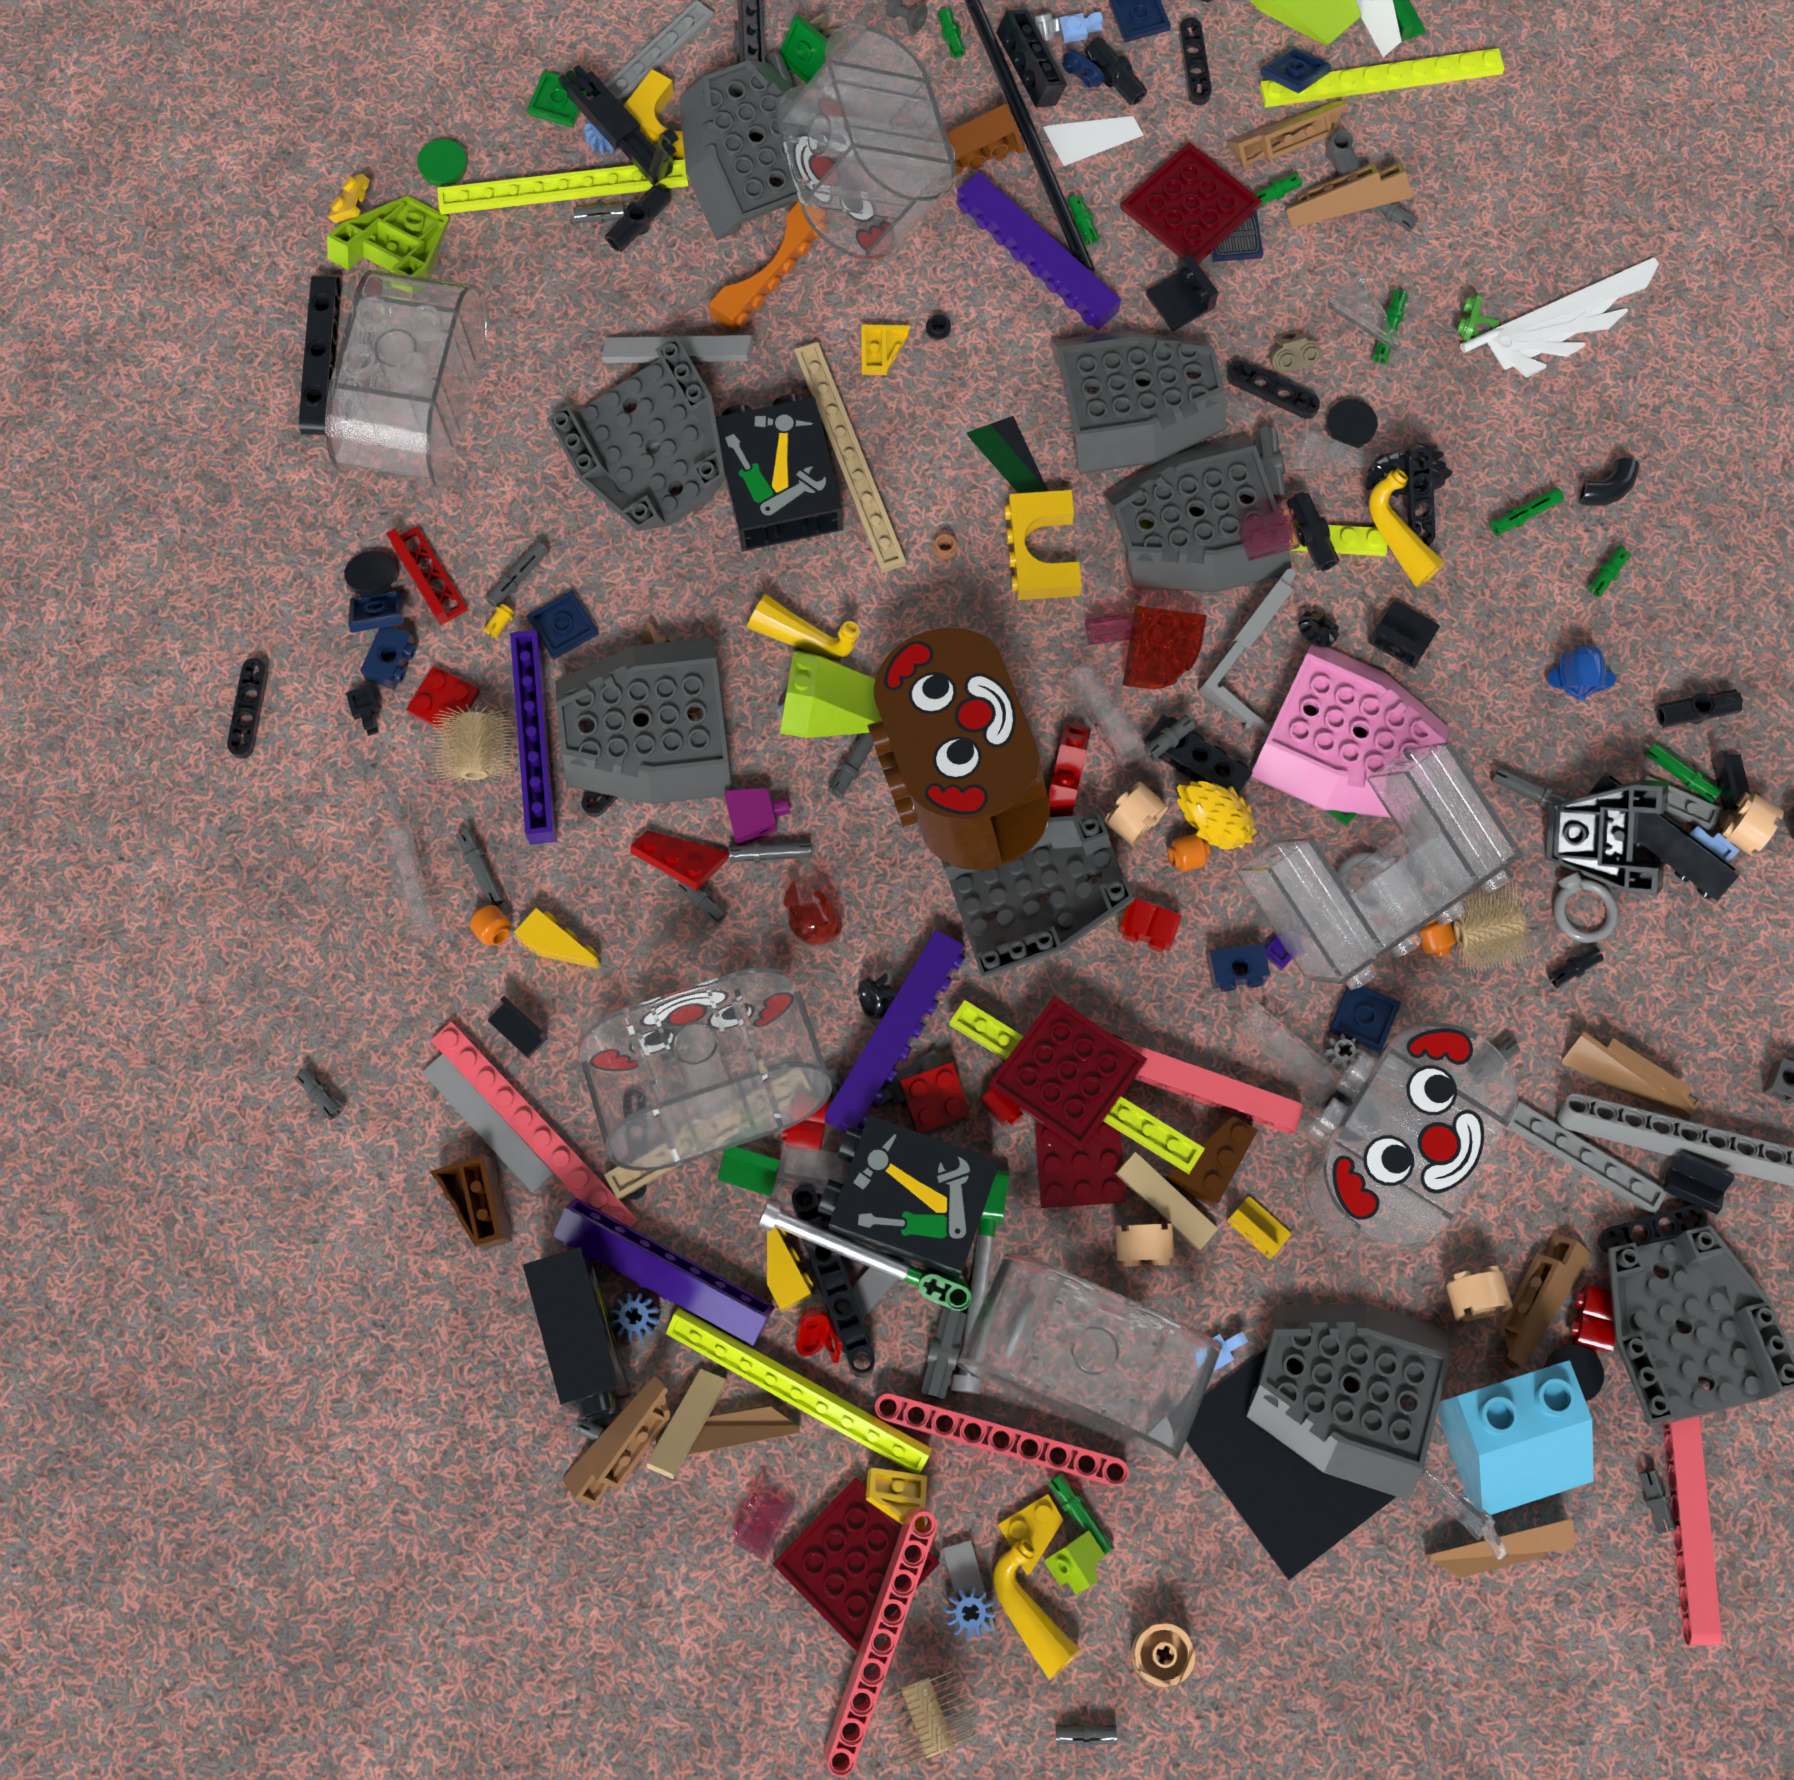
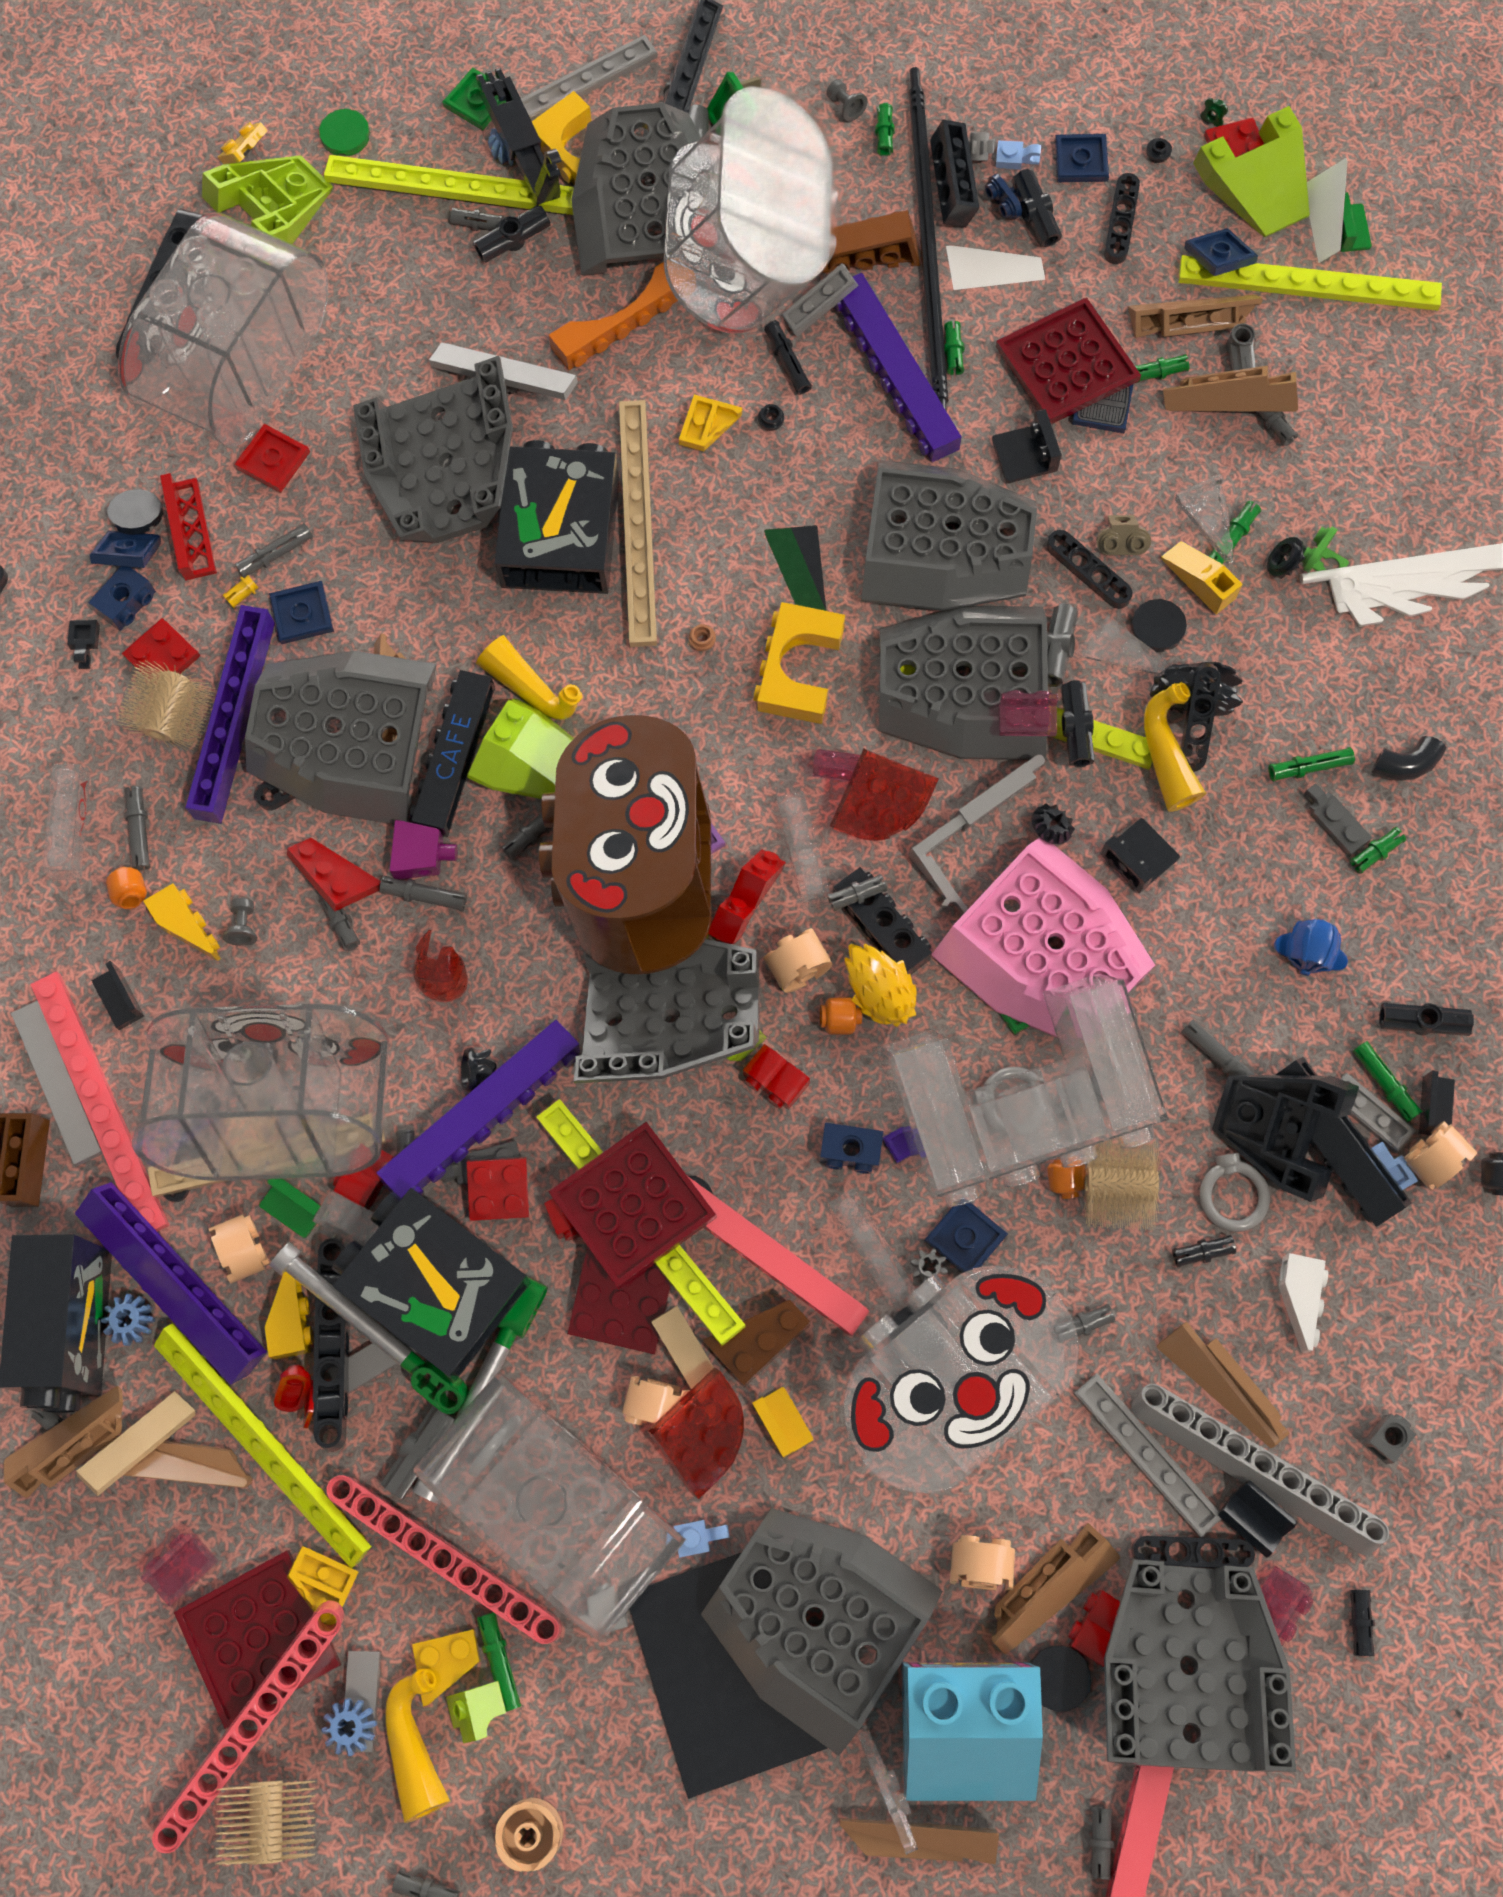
camera: 20 degrees right, 0 degrees up
(484, 488) = (272, 458): none -> red plate
(613, 936) = (240, 933): none -> dark grey piece
(717, 1221) = (237, 1248): none -> light nougat brick
(753, 713) = (453, 751): none -> black brick
(928, 261) = (783, 349): none -> black pin
(946, 211) = (819, 299): none -> light grey tile
(1195, 1256) = (702, 1433): none -> clear red plate
(1378, 368) = (1203, 575): none -> yellow slope
(1446, 321) = (1276, 562): none -> black gear
(1564, 555) = (1336, 820): none -> dark grey hinge
(1670, 975) = (1301, 1291): none -> white slope
(1746, 1244) = (1286, 1602): none -> clear pink bracket

